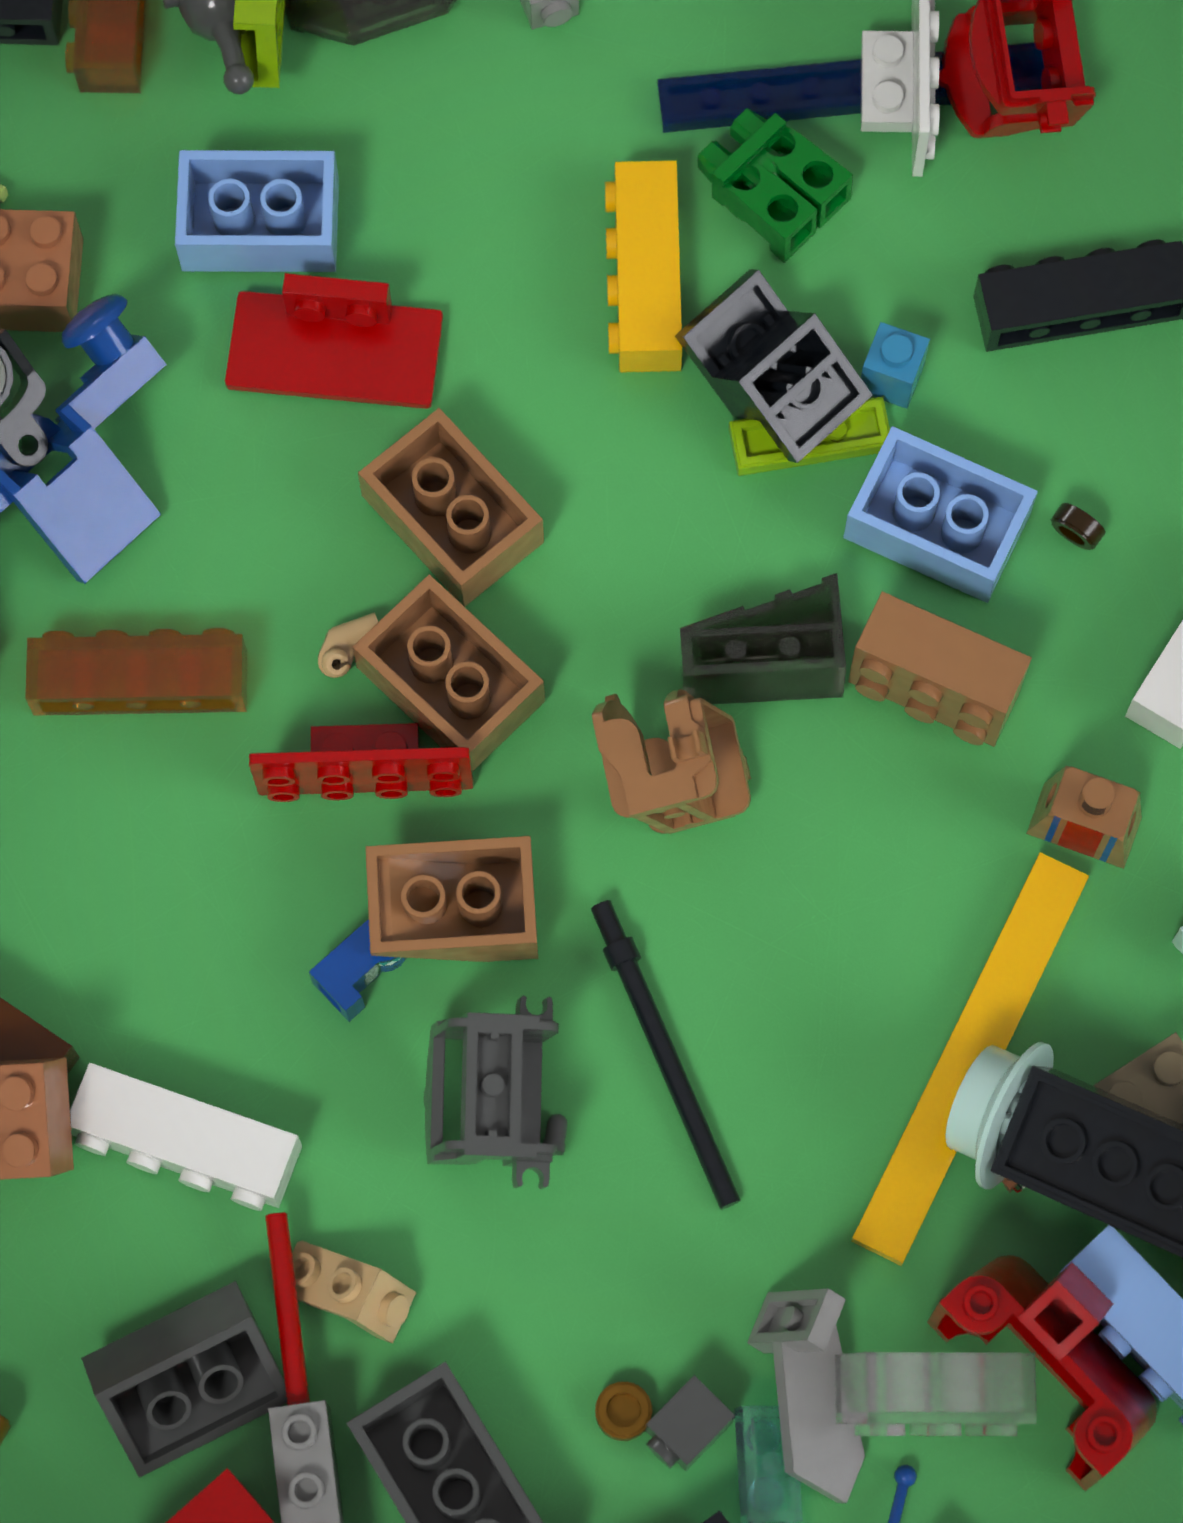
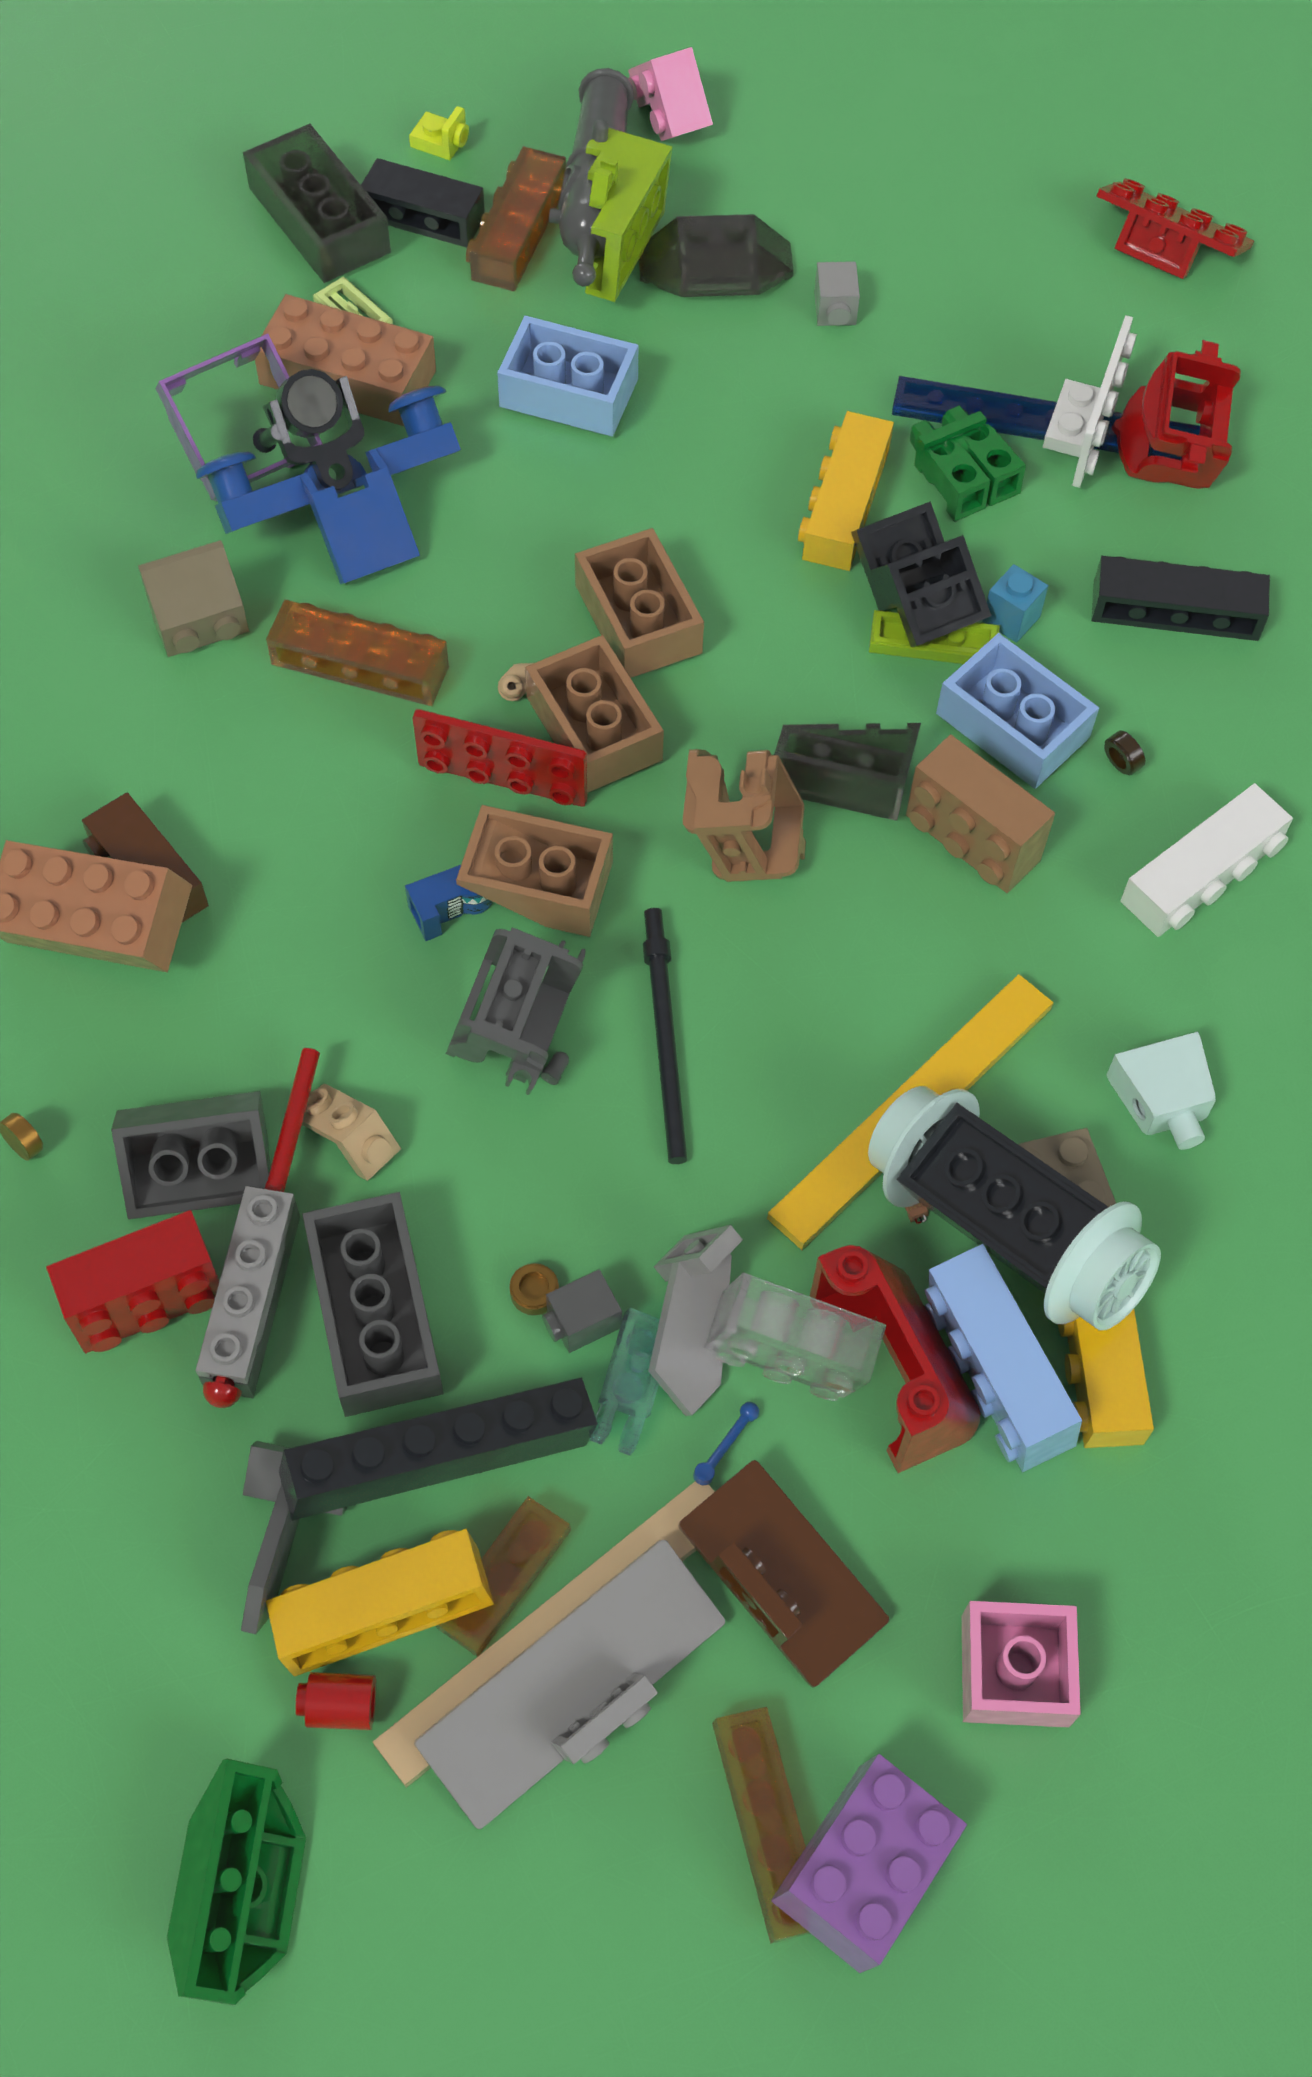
camera: 15 degrees right, 10 degrees down
(183, 1136) = (263, 978): white brick -> none
(334, 343) = (593, 476): red bracket -> none
(1065, 1311) = (921, 1292): red brick -> none
(1088, 815) = (1068, 955): medium nougat torso -> none

